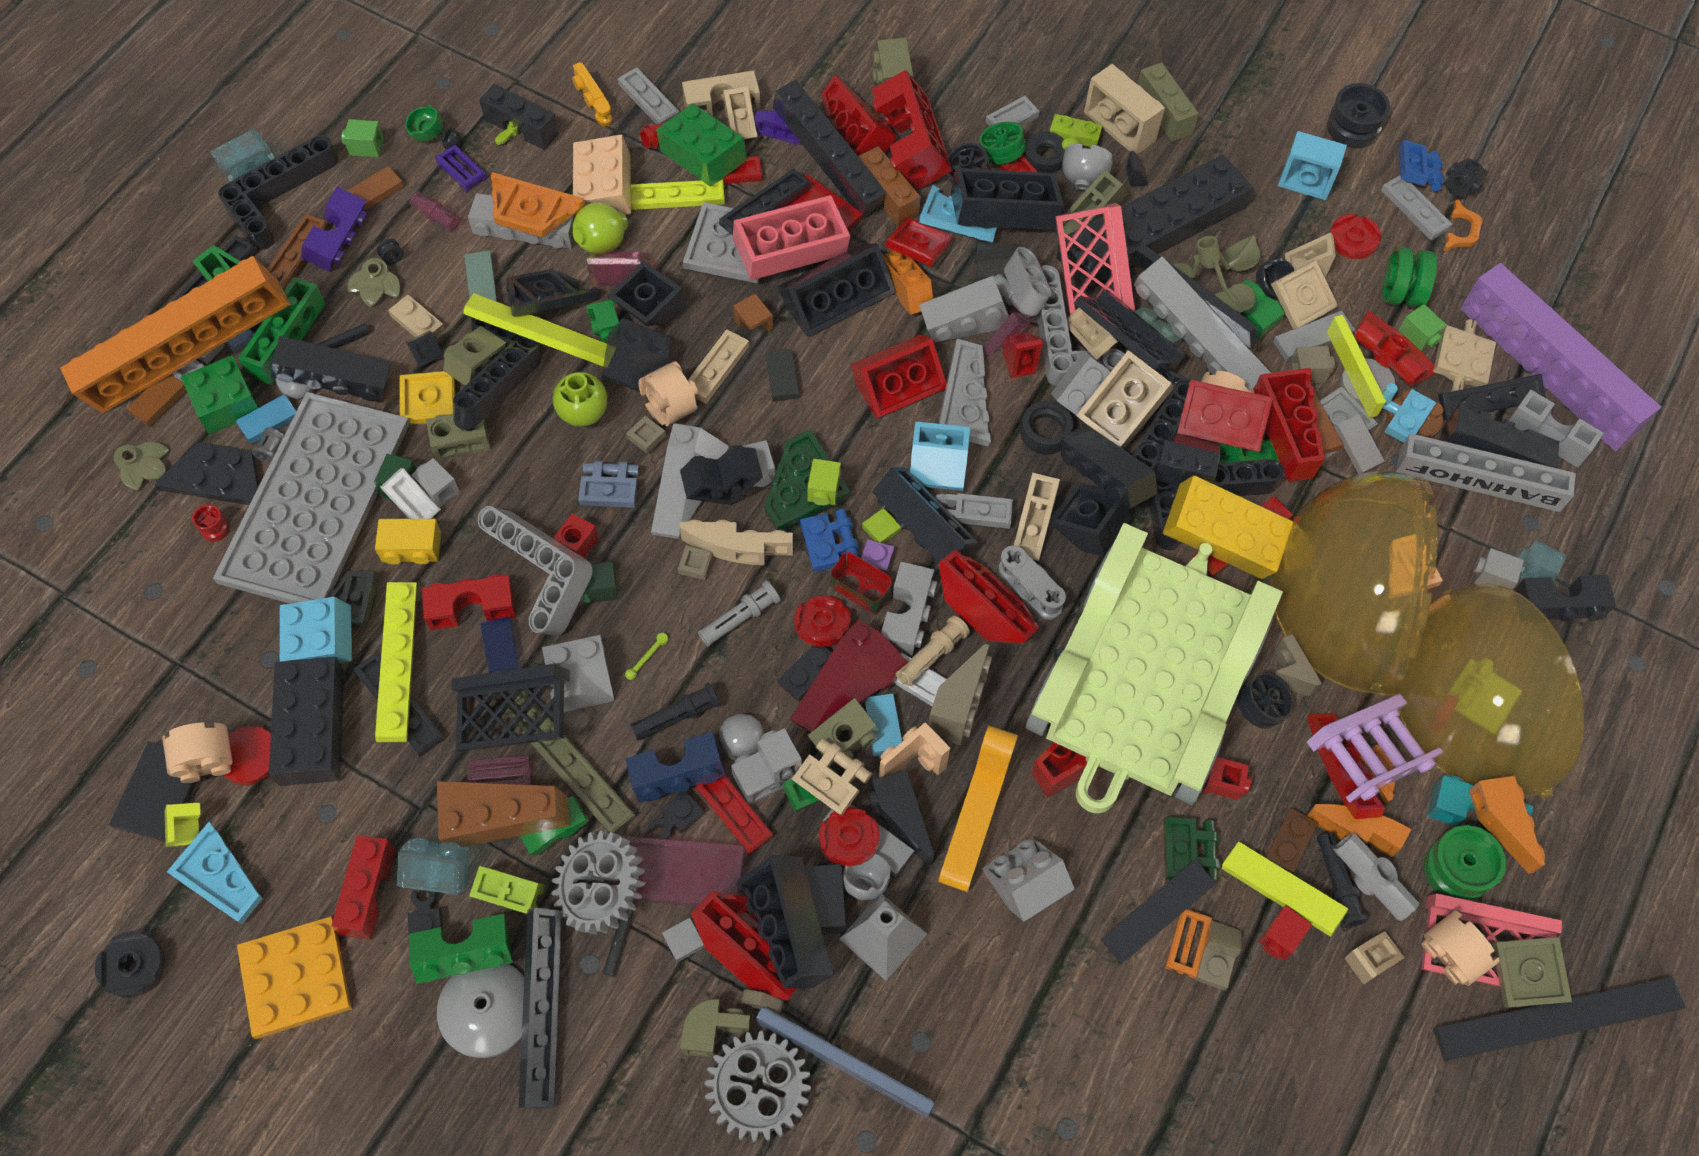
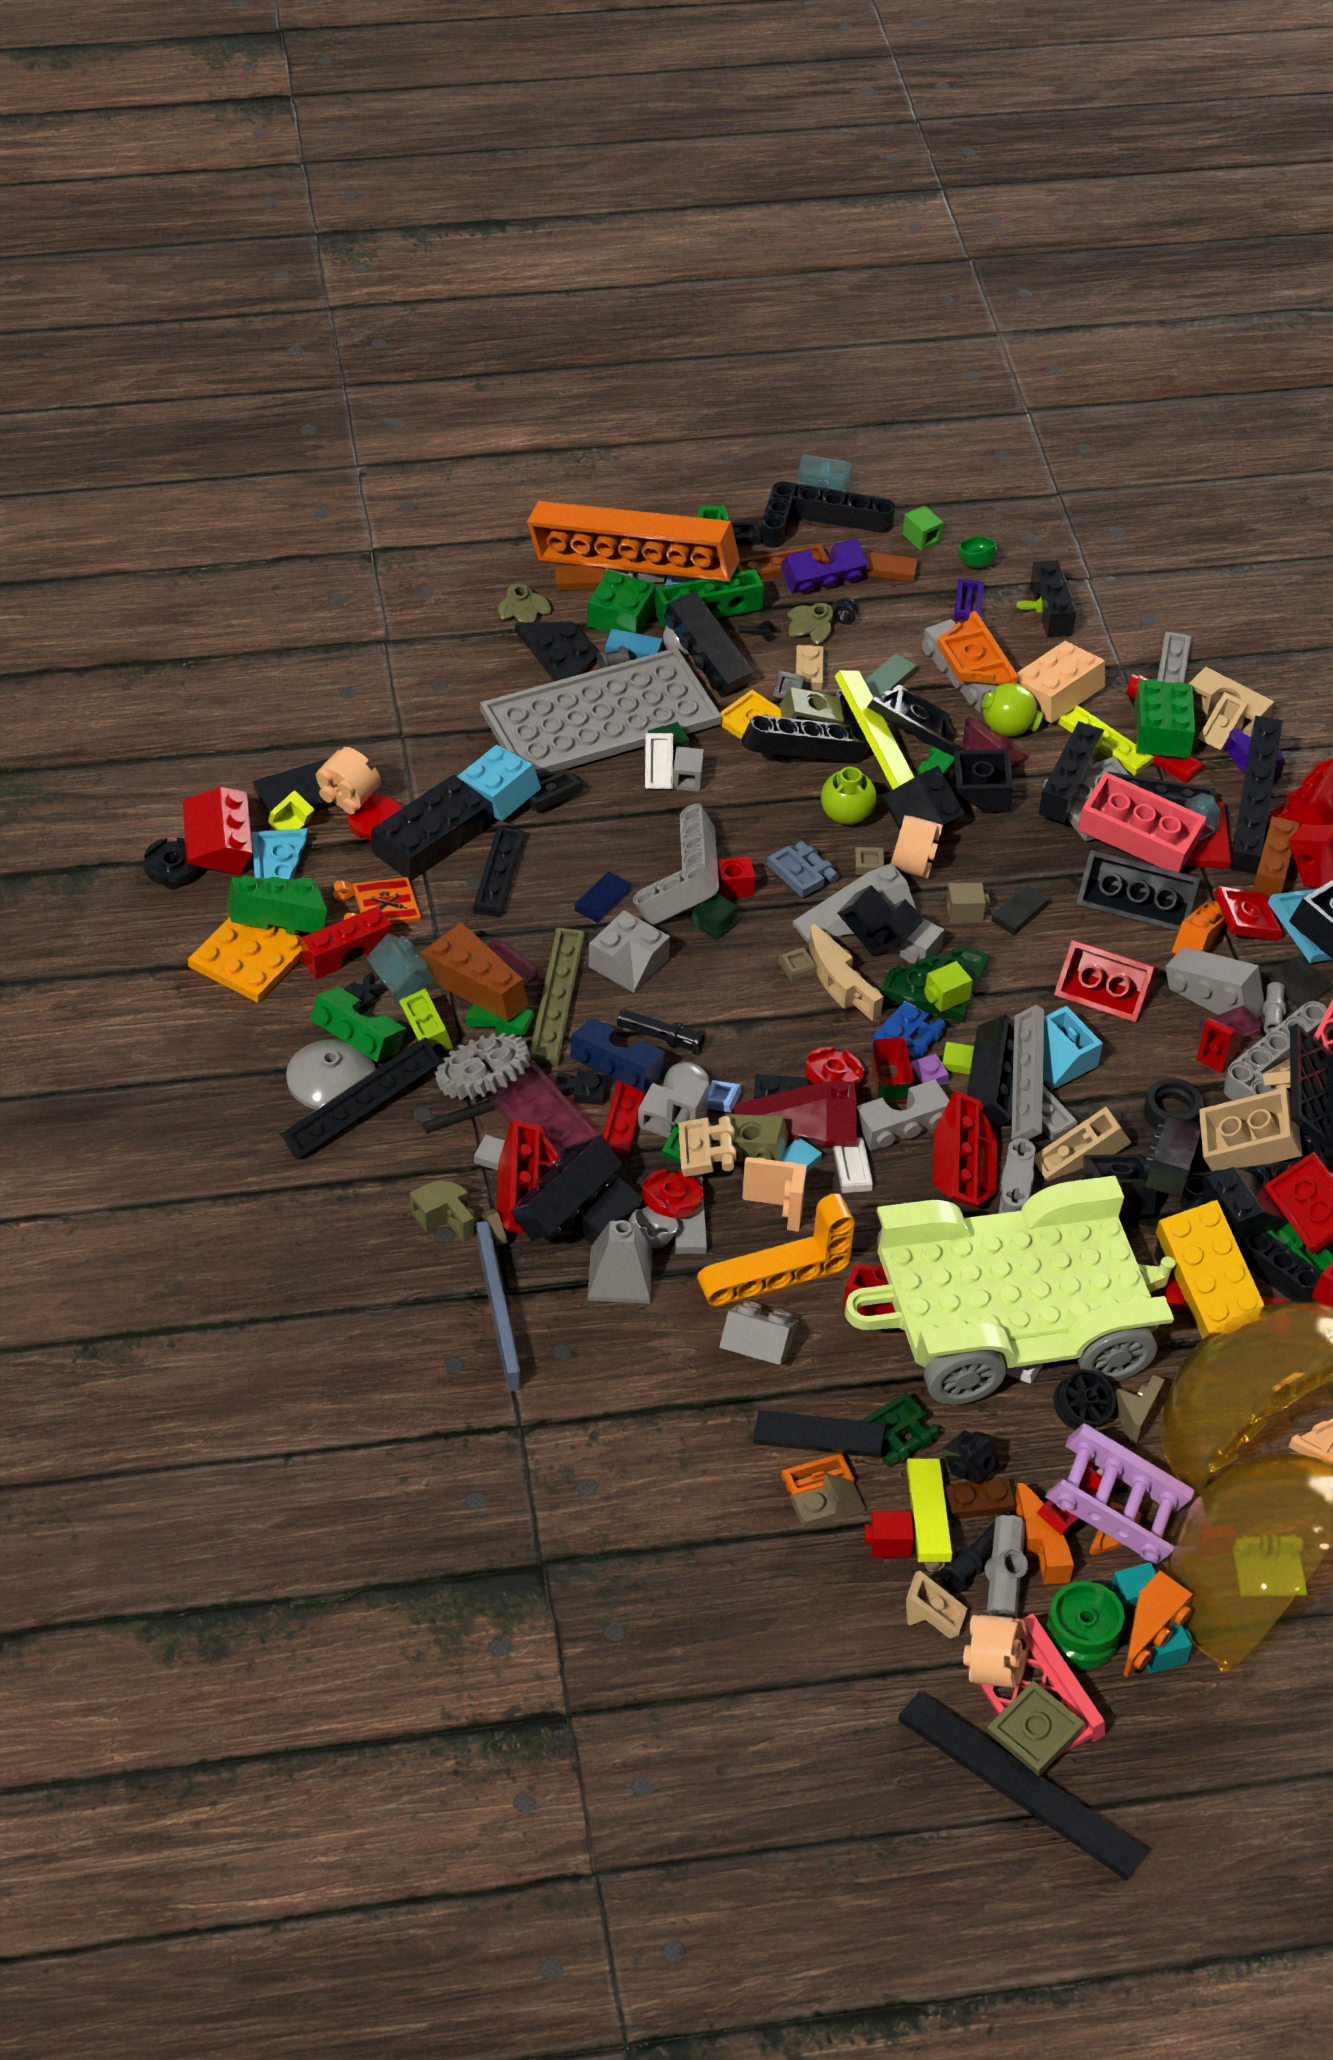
camera: 50 degrees right, 15 degrees down
(138, 901) = (217, 830): none -> red slope
(210, 523) = (519, 672): red wheel -> none
(273, 915) = (276, 902): none -> green wedge
(338, 821) = (390, 895): none -> orange flag
(345, 337) = (748, 639): black bar -> none
(348, 318) = (765, 629): none -> black hand
(396, 662) = (527, 844): neon yellow plate -> none
(408, 540) = (626, 786): yellow brick -> none
(434, 211) = (911, 611): clear pink pin -> none
(444, 601) = (602, 839): red arch -> none
(453, 138) = (988, 576): black hinge -> none
(458, 441) = (732, 756): olive brick -> none
(511, 682) = (573, 909): black fence -> none
(592, 94) = (1128, 628): light orange hinge -> none
(662, 639) = (712, 986): lime hinge -> none
(700, 240) = (1071, 772): none -> black brick
(718, 364) = (978, 863): tan plate -> none
(747, 404) = (966, 902): none -> dark tan brick
(747, 1115) = (447, 1253): light grey gear -> none
(749, 607) = (796, 1018): light grey pin -> none
(752, 313) = (1050, 850): dark orange panel -> none
(776, 718) = (723, 1096): none -> light blue tile
(813, 189) = (1206, 806): none -> clear light blue brick
(900, 811) = (733, 1211): black slope -> none
(941, 643) = (896, 1154): tan pin -> none
(952, 497) = (1028, 1073): none -> light grey plate
(959, 698) = (865, 1182): dark tan slope -> none
(965, 392) = (1141, 1034): light grey wing -> none
(1027, 281) = (1289, 999): light grey beam -> none
(1080, 382) = (1232, 1088): light grey brick -> none
(1234, 772) = (984, 1414): red brick -> none
(1261, 819) = (971, 1457): none -> black brick

